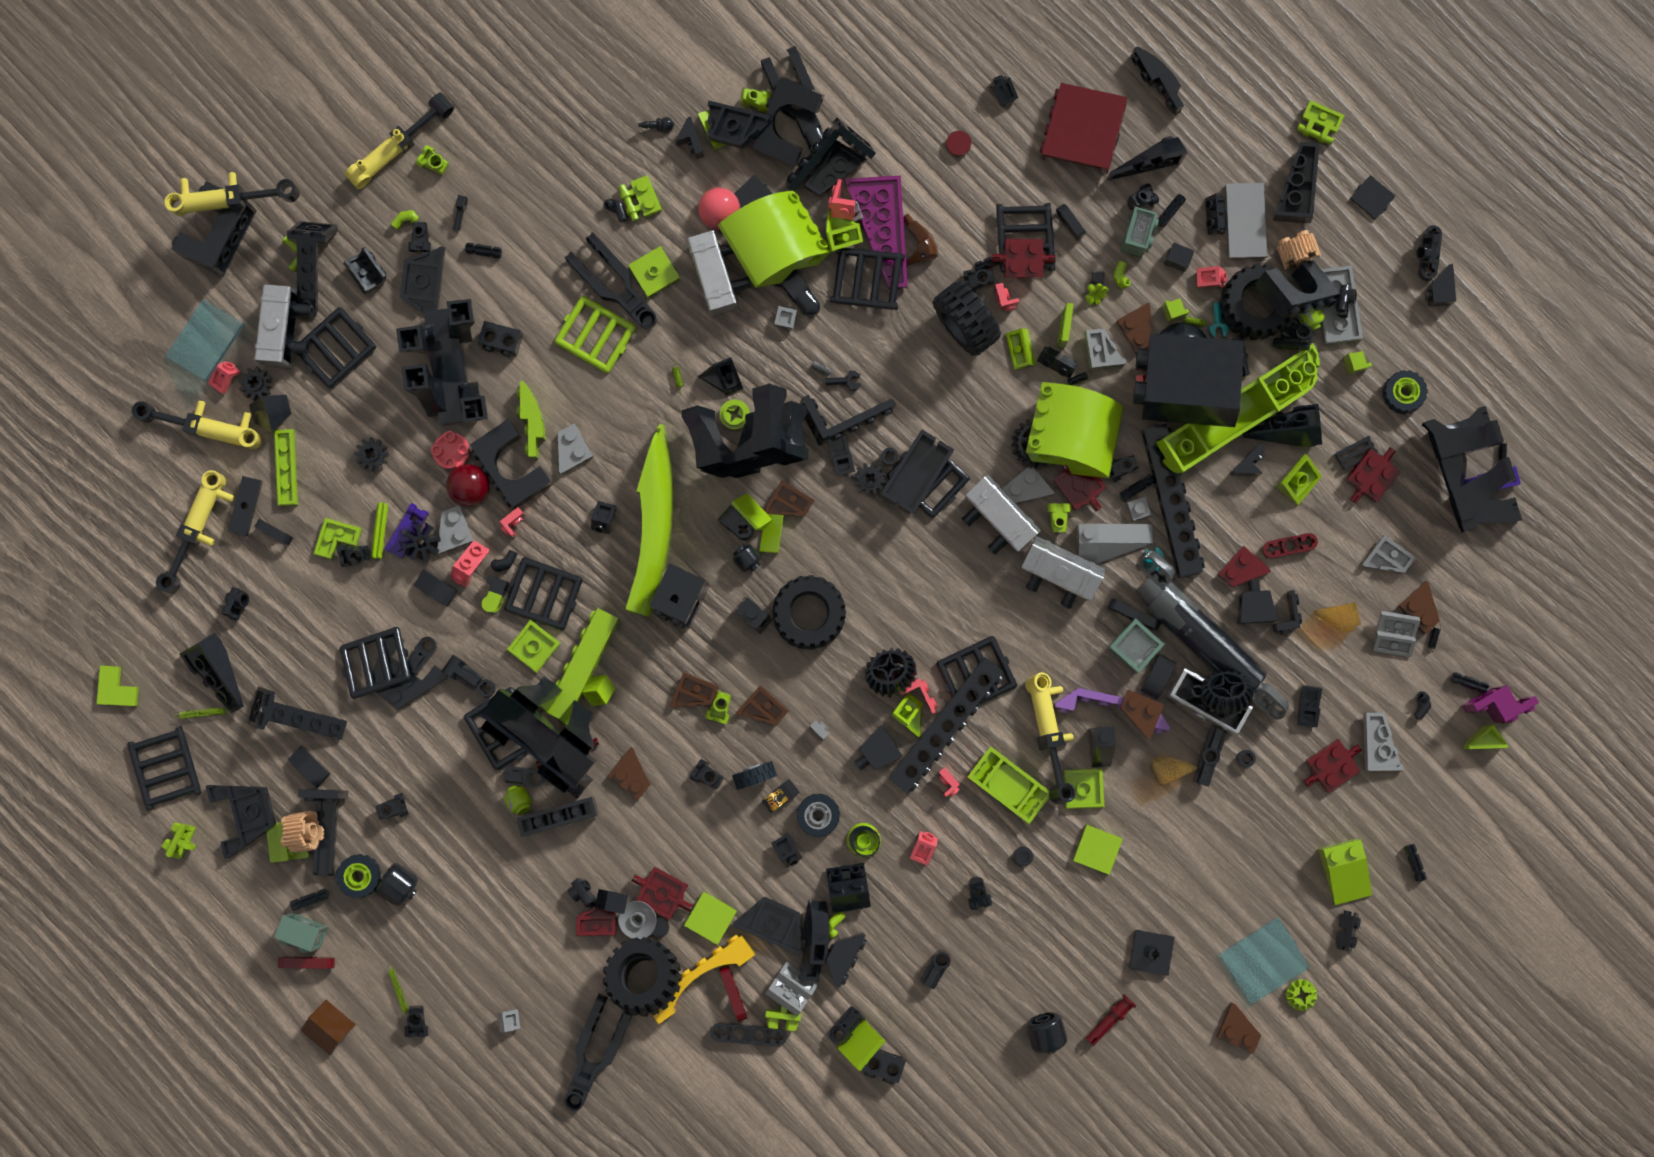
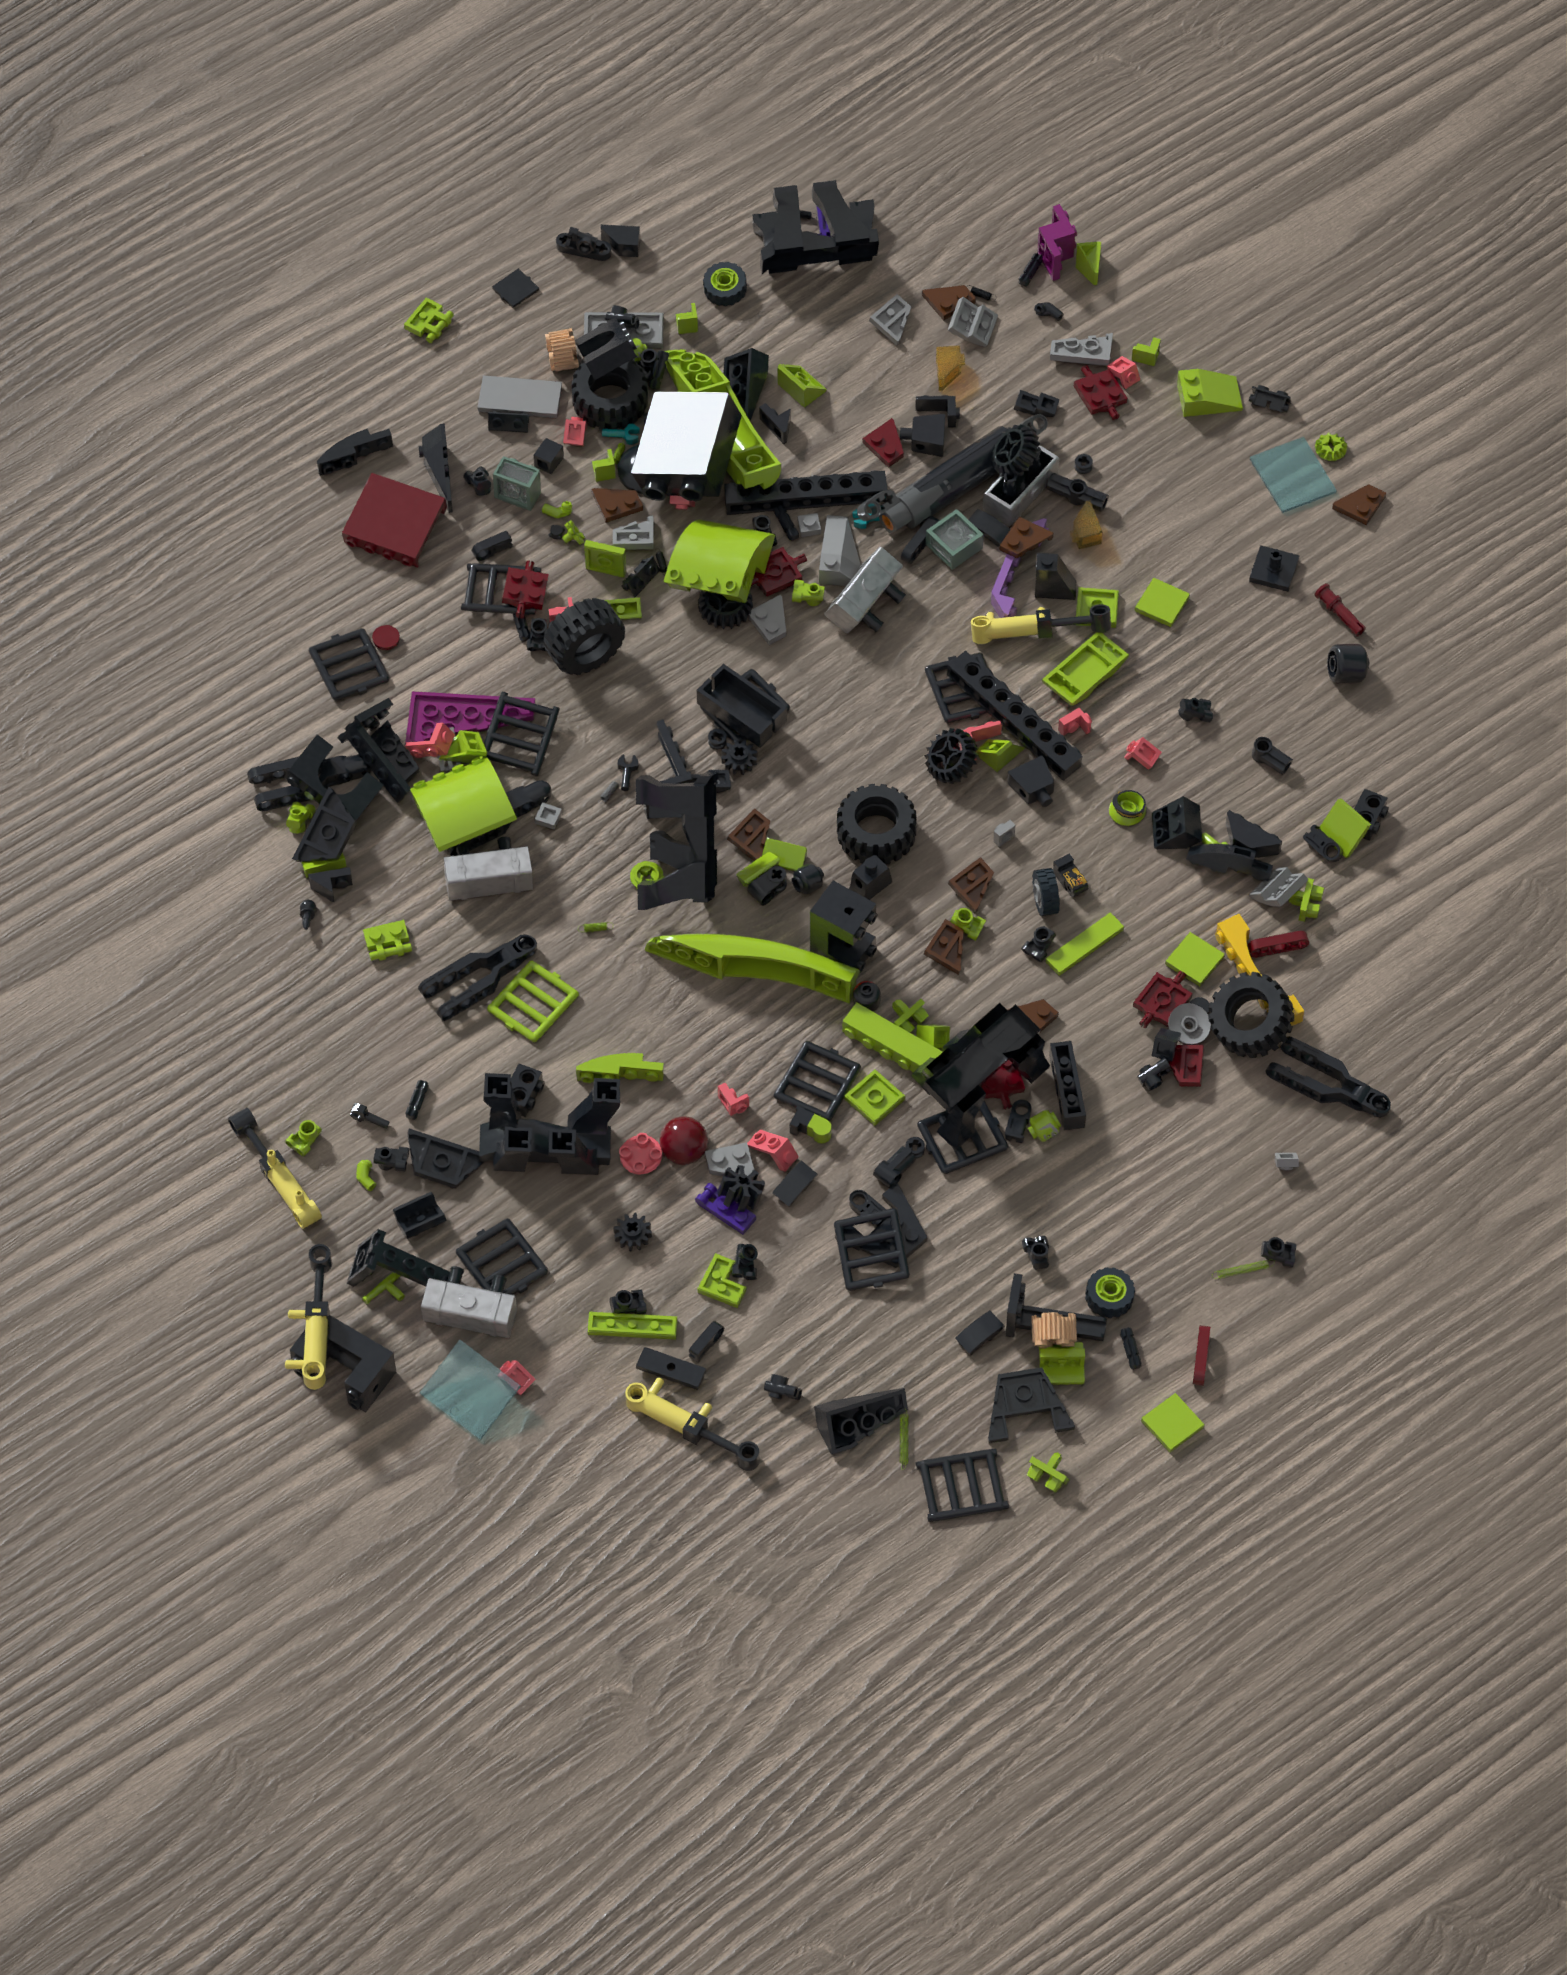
camera: 80 degrees left, 25 degrees down
(110, 690) = (863, 1533): lime tile -> none
(200, 426) = (568, 1407): light yellow piece -> none
(241, 943) = (1172, 1422): none -> lime tile
(253, 377) = (522, 1339): black gear -> none
(265, 710) = (909, 1355): black bracket -> none
(270, 411) = (566, 1334): black slope -> none
(301, 932) = (1167, 1349): sand green piece -> none
(305, 465) = (628, 1302): none -> black plate
(327, 1027) = (1278, 1343): reddish brown slope -> none
(379, 530) = (719, 1235): lime axle -> none
(397, 885) = (1124, 1250): black head -> none
(488, 450) = (650, 1116): black arch -> none
(504, 564) = (777, 1113): black arm -> none
(571, 449) = (658, 1036): light grey wing -> none
(602, 517) = (742, 1011): black bracket -> none
(616, 207) = (394, 963): black arm -> none
(621, 670) = (904, 1012): none -> lime hips
(635, 629) = (867, 995): none -> black head
(654, 271) = (473, 935): lime plate -> none
(714, 816) = (1084, 944): none -> lime tile
(716, 206) = (414, 865): coral piece -> none
(723, 376) = (603, 880): black slope -> none
(748, 1037) = (1321, 936): black beam -> none
(751, 191) = (406, 835): black piece -> none
(773, 923) = (1207, 900): black wing -> none
(786, 850) = (1130, 877): black bracket -> none
(809, 823) = (1092, 855): black wheel -> none
(922, 92) = (367, 648): none -> black bar
(927, 247) = (495, 675): reddish brown animal -> none
(1002, 514) = (797, 637): flat silver piece -> none
(1003, 89) = (335, 588): black bracket -> none
(1023, 856) = (1161, 668): black tile -> none
(1171, 210) = (493, 456): black axle -> none
(1274, 543) = (873, 407): dark red beam -> none
(1299, 191) = (493, 341): black wedge -> none
(1341, 460) = (775, 321): black tile -> none
(1359, 786) = (1125, 371): none -> coral bracket
(1373, 475) = (806, 321): dark red plate -> none
(1386, 805) = (1146, 354): none -> lime panel
(1415, 862) = (1207, 336): black axle -> none

